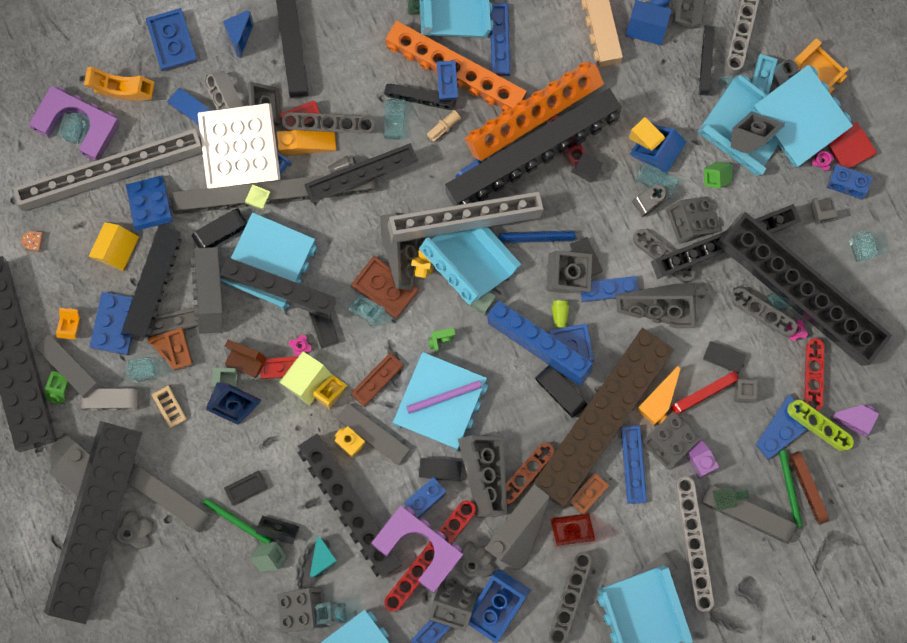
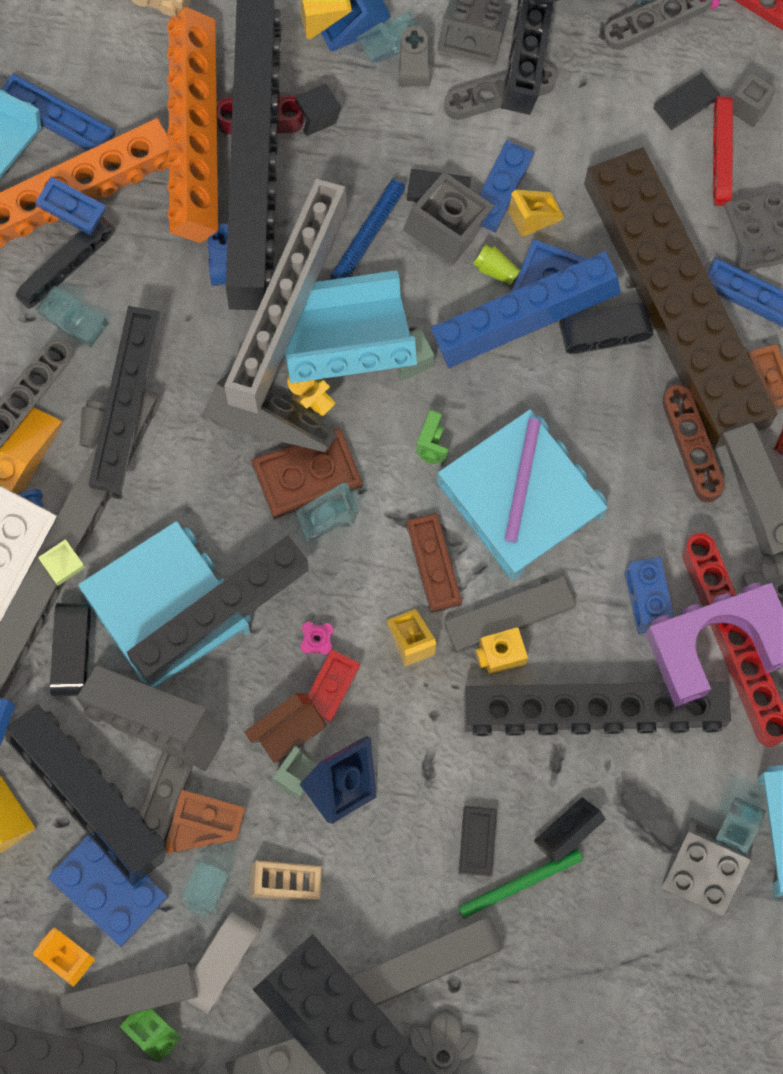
camera: 60 degrees left, 5 degrees down
(268, 557) = (601, 867): sand green panel -> none
(305, 377) = (370, 656): yellowish green slope -> none
(322, 559) = (650, 791): teal slope -> none
(324, 330) = (314, 592): black tile -> none
(440, 469) = (617, 552): black slope -> none
(443, 126) = (128, 257): tan axle -> none
(486, 473) = (666, 491): dark grey wedge -> none
(605, 315) = (533, 210): none -> yellow slope
(658, 403) = (696, 208): light orange slope -> none
(668, 304) = (572, 123): dark grey wedge -> none

